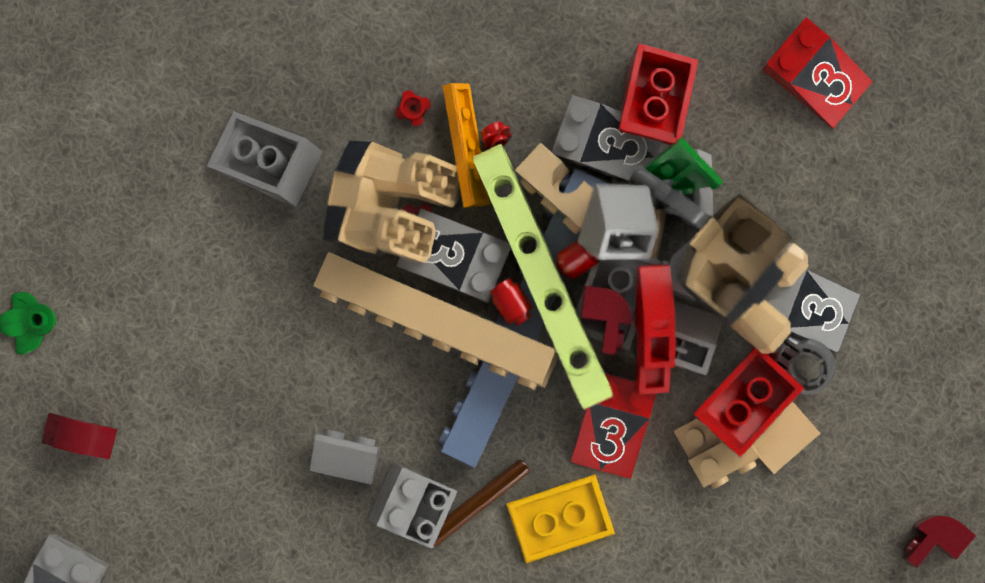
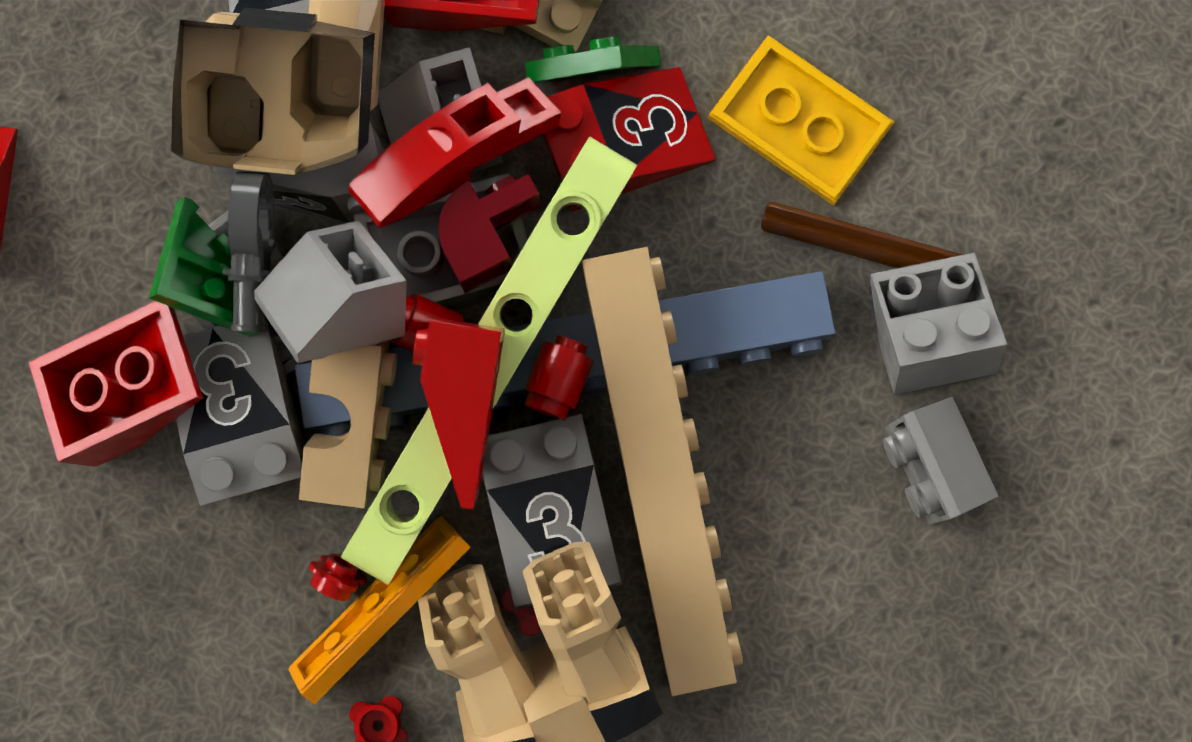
camera: 115 degrees left, 5 degrees down
(539, 254) = (460, 386): none -> red slope
(658, 434) = (604, 57): none -> green wing

